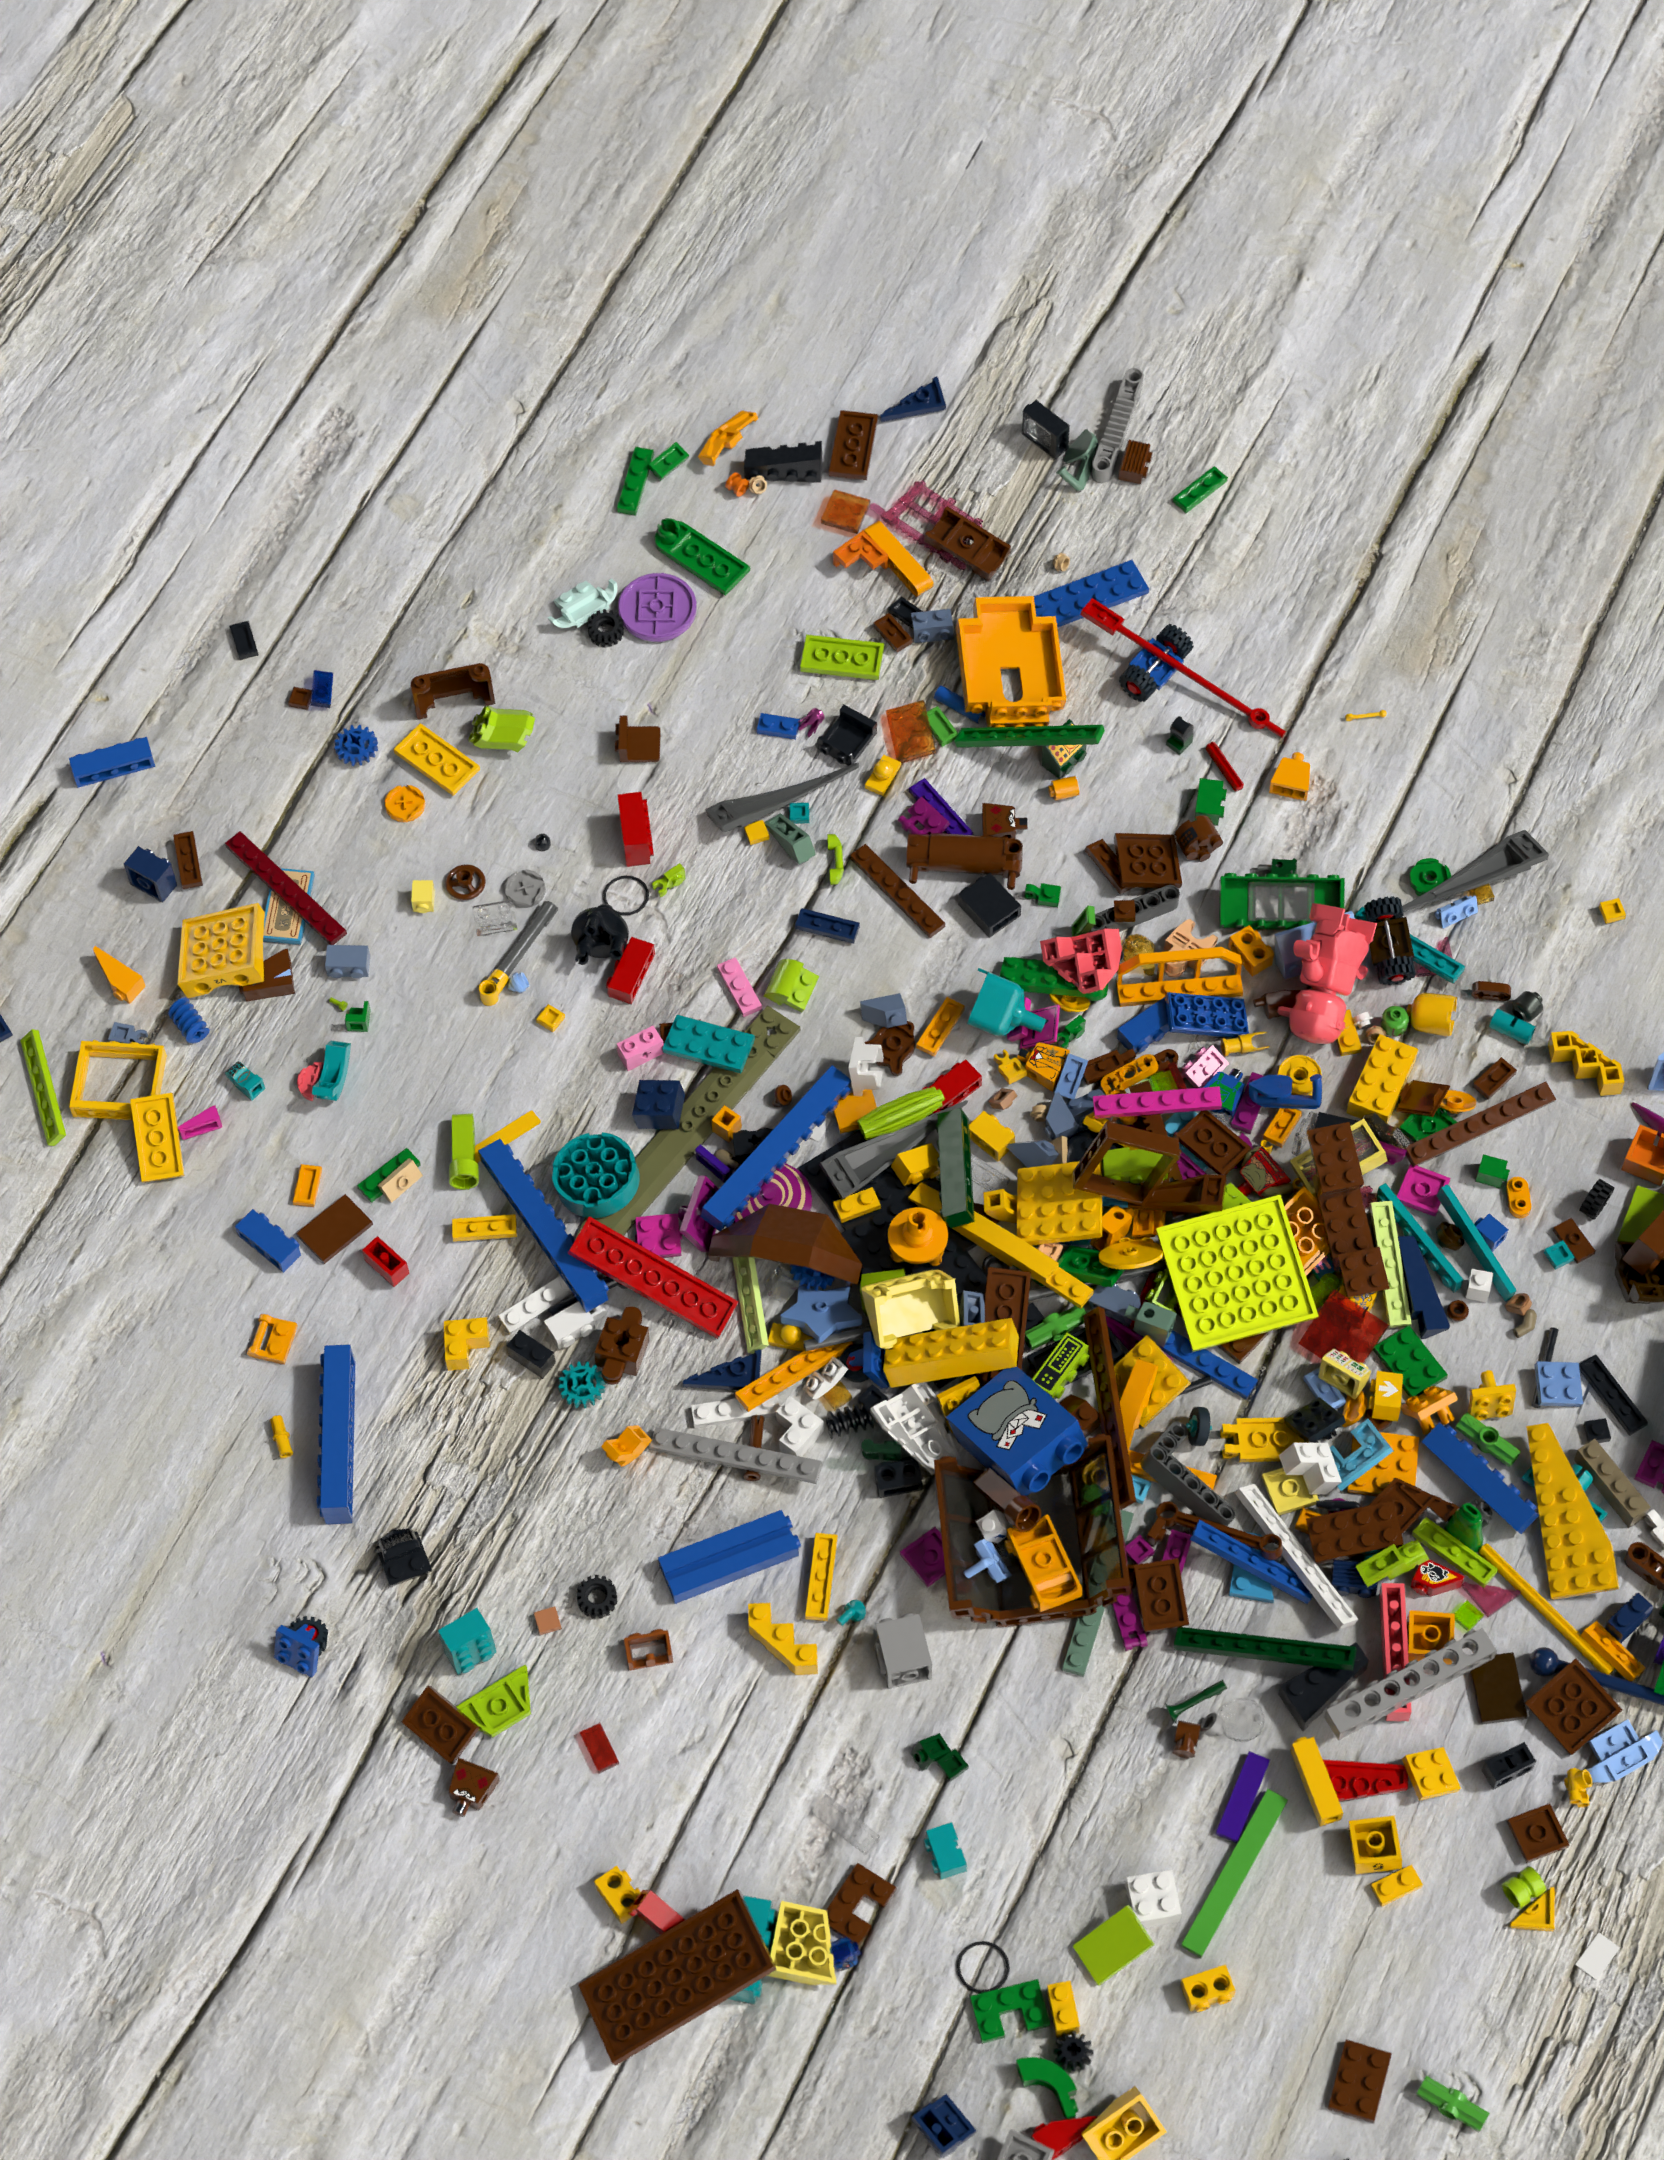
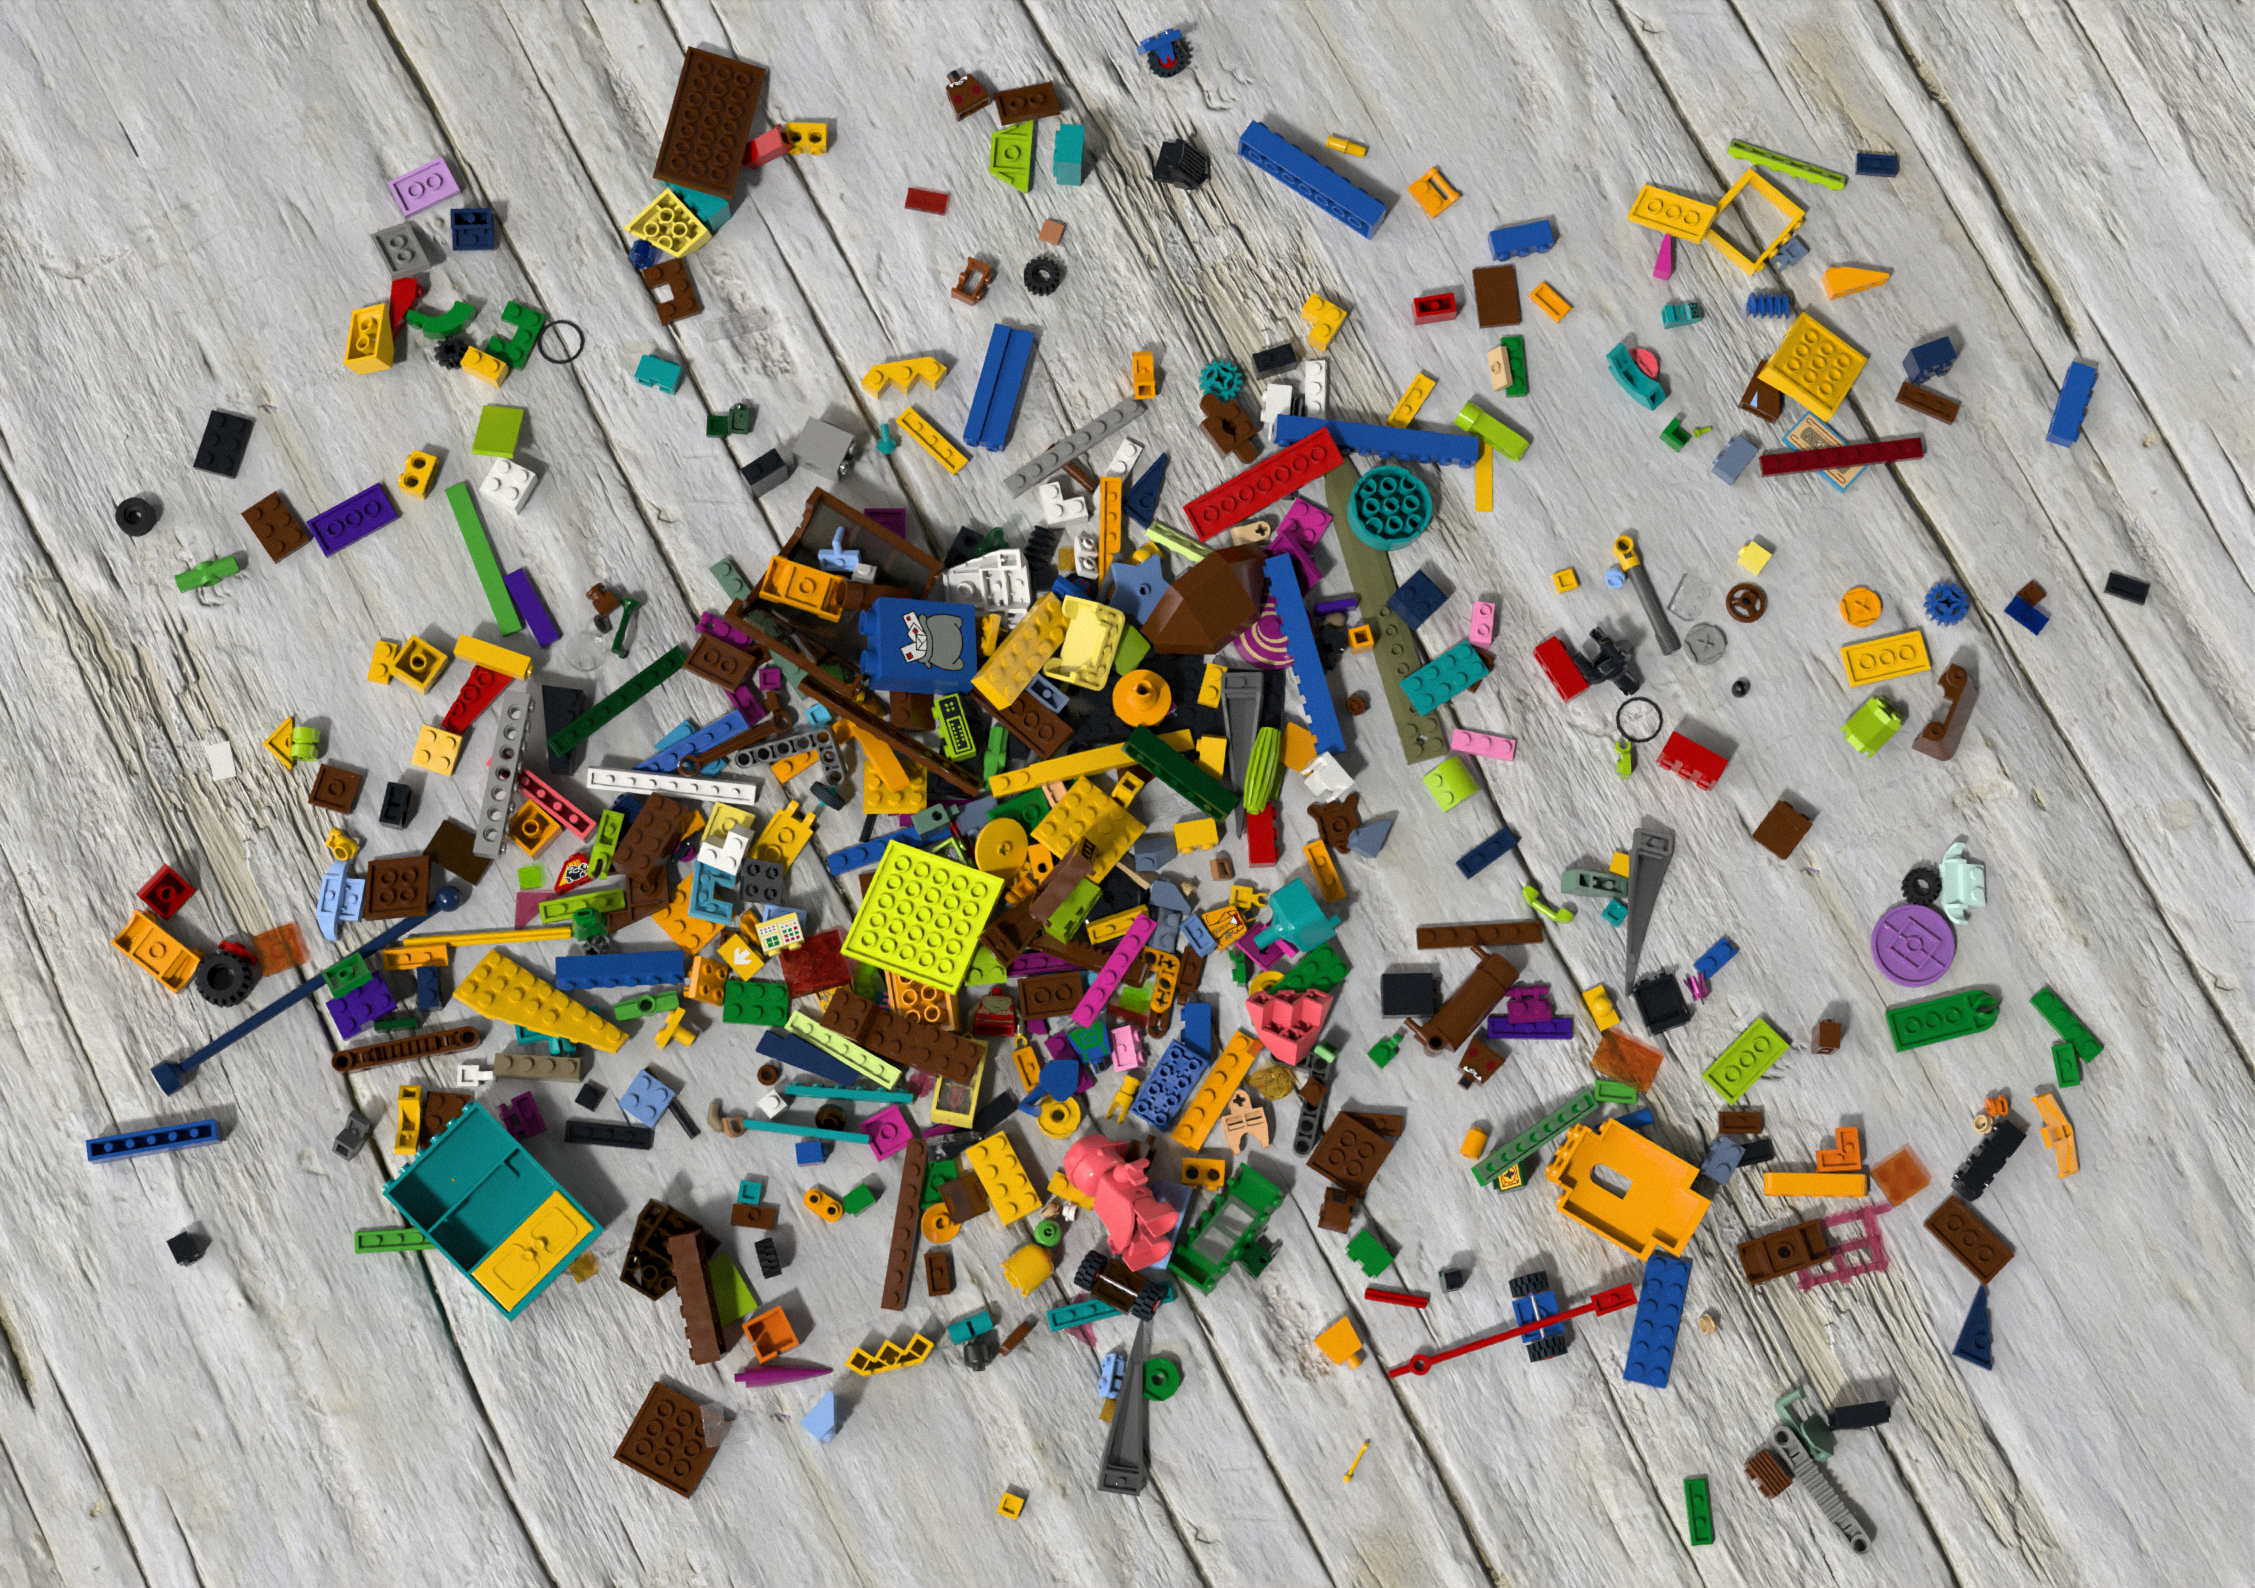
camera: 120 degrees right, 15 degrees up
(703, 1268) = (1249, 533): none -> tan piece
(781, 612) = (1826, 1037): none -> reddish brown brick
(967, 1681) = (764, 474): none -> black brick
(1295, 2017) = (352, 520): none -> dark purple tile

